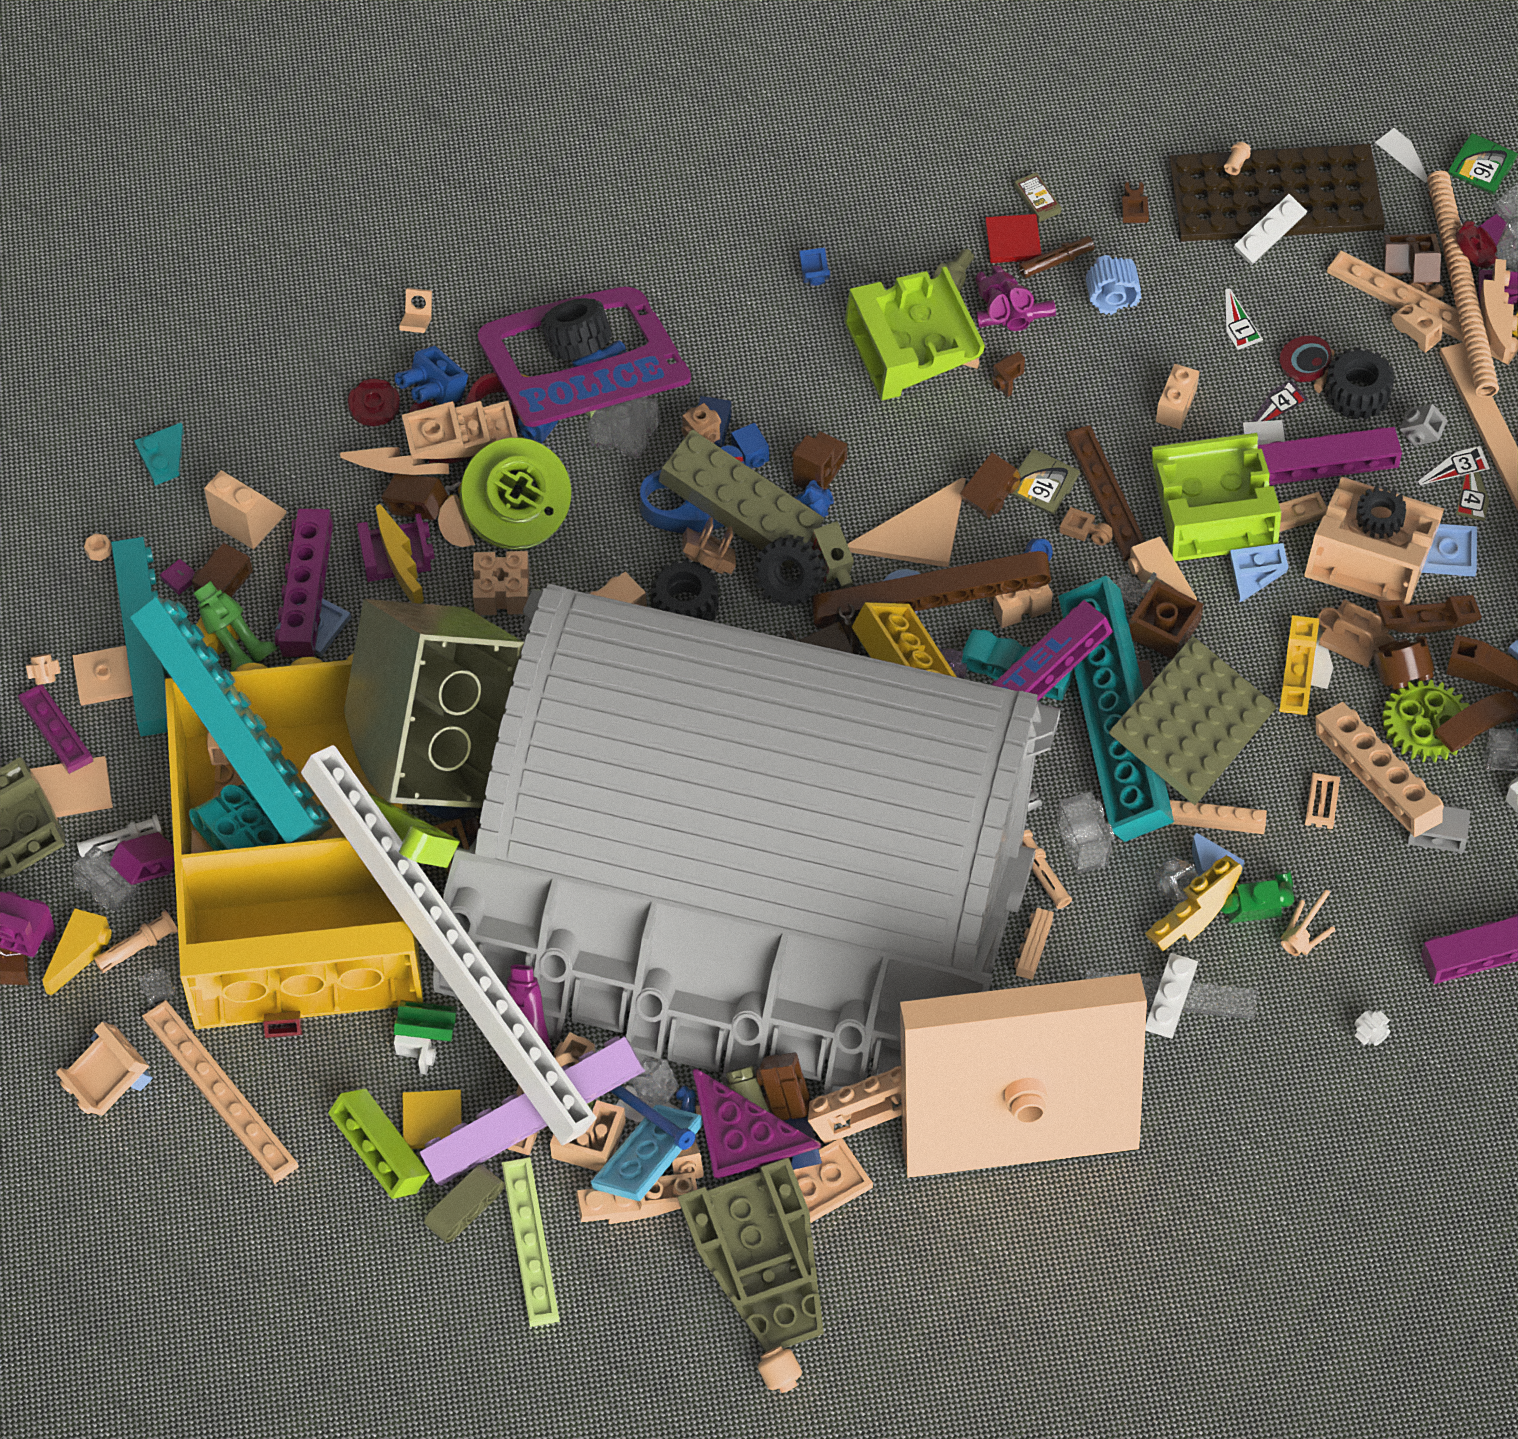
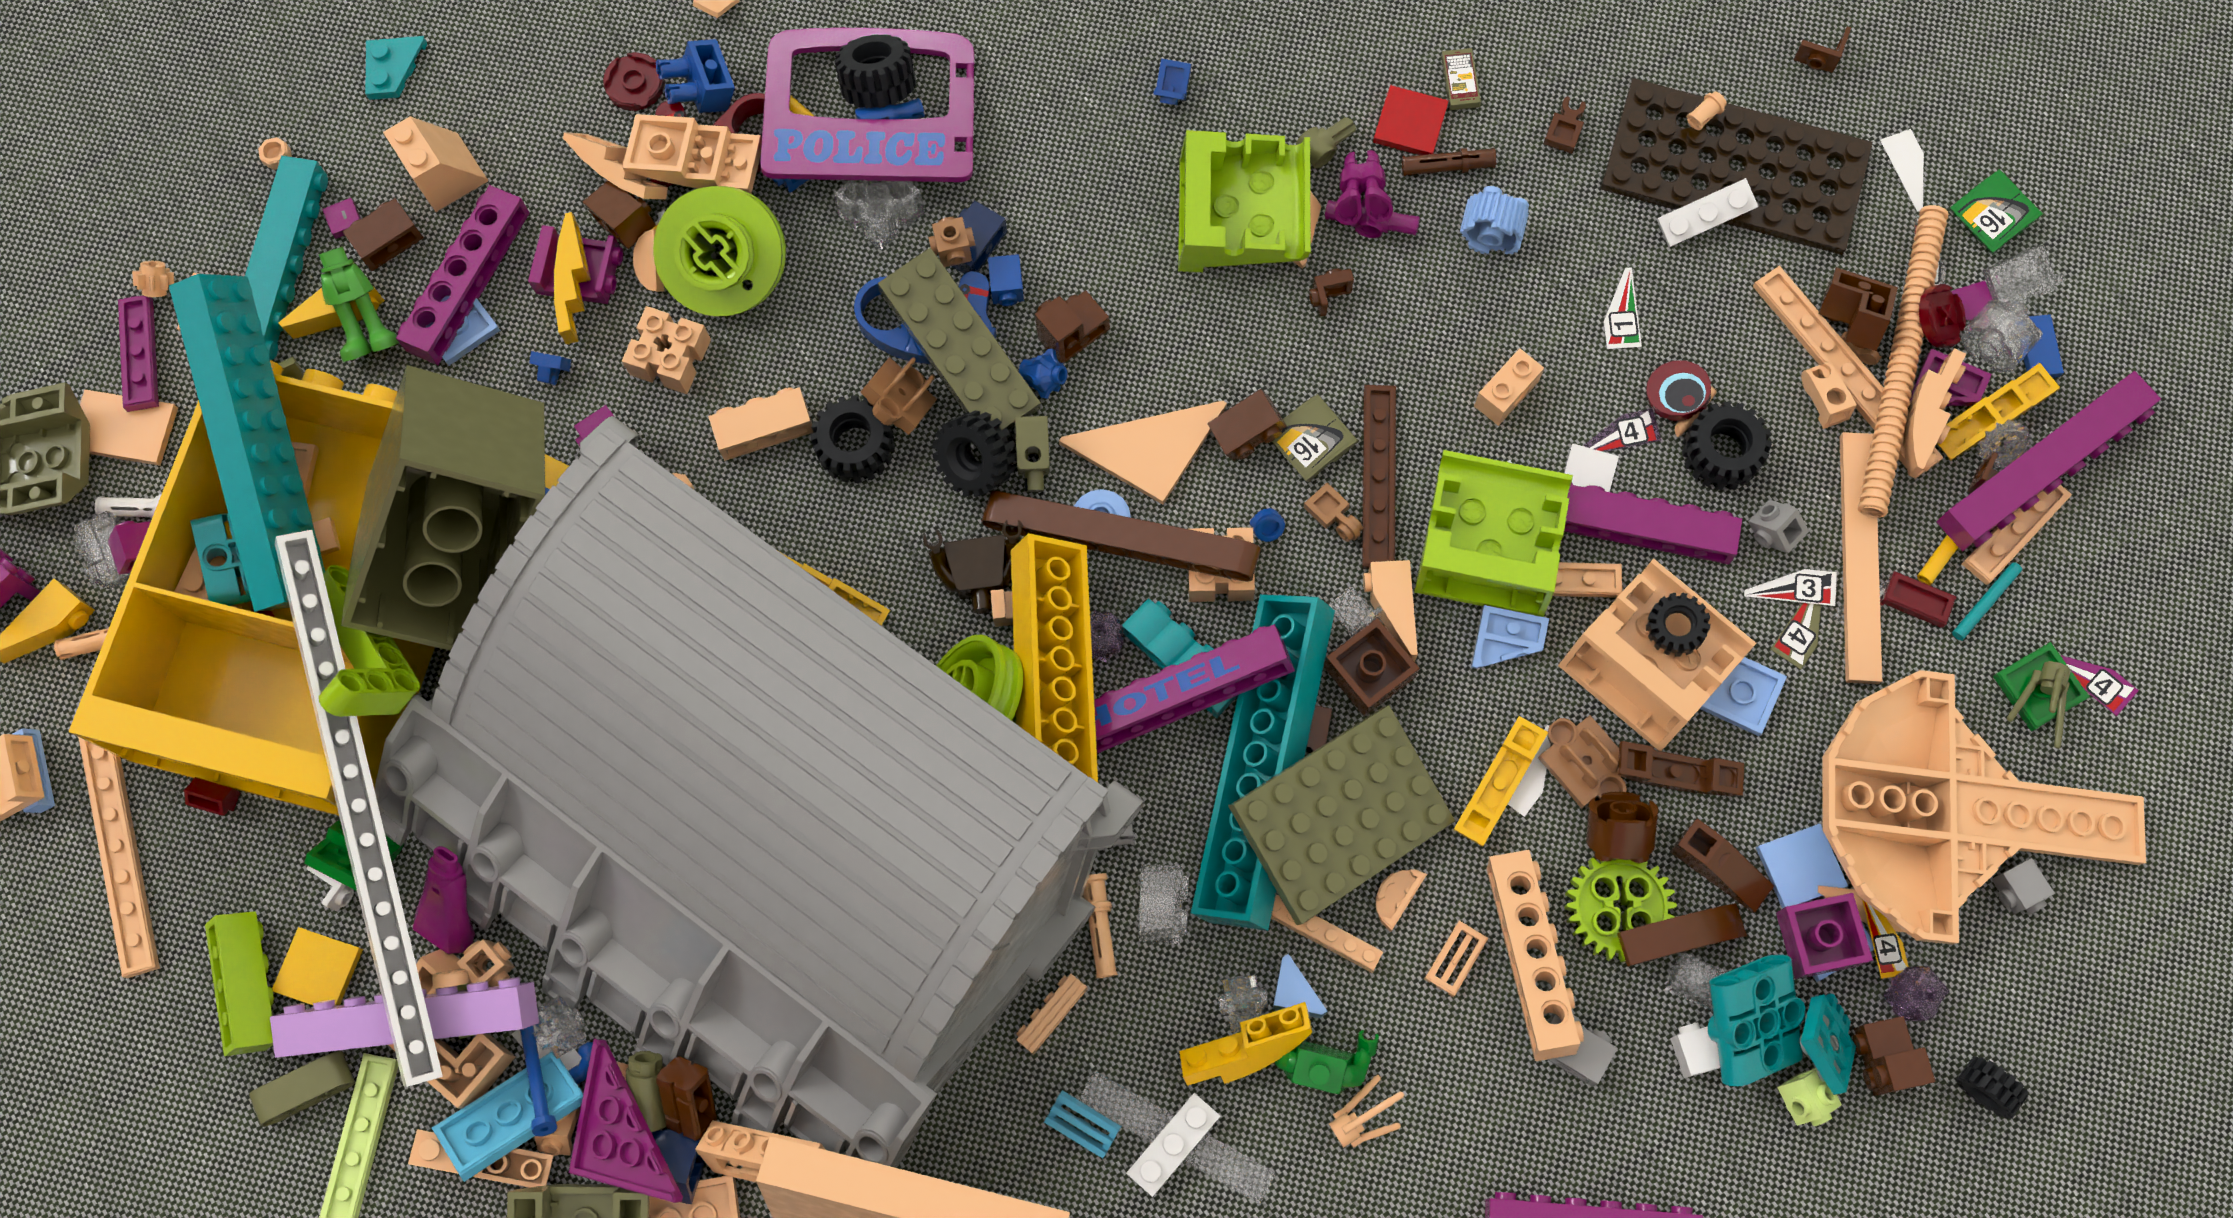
camera: 25 degrees right, 15 degrees up
(1256, 773) = (1396, 894): none -> light nougat tile
(1304, 96) = (1821, 57): none -> reddish brown bracket

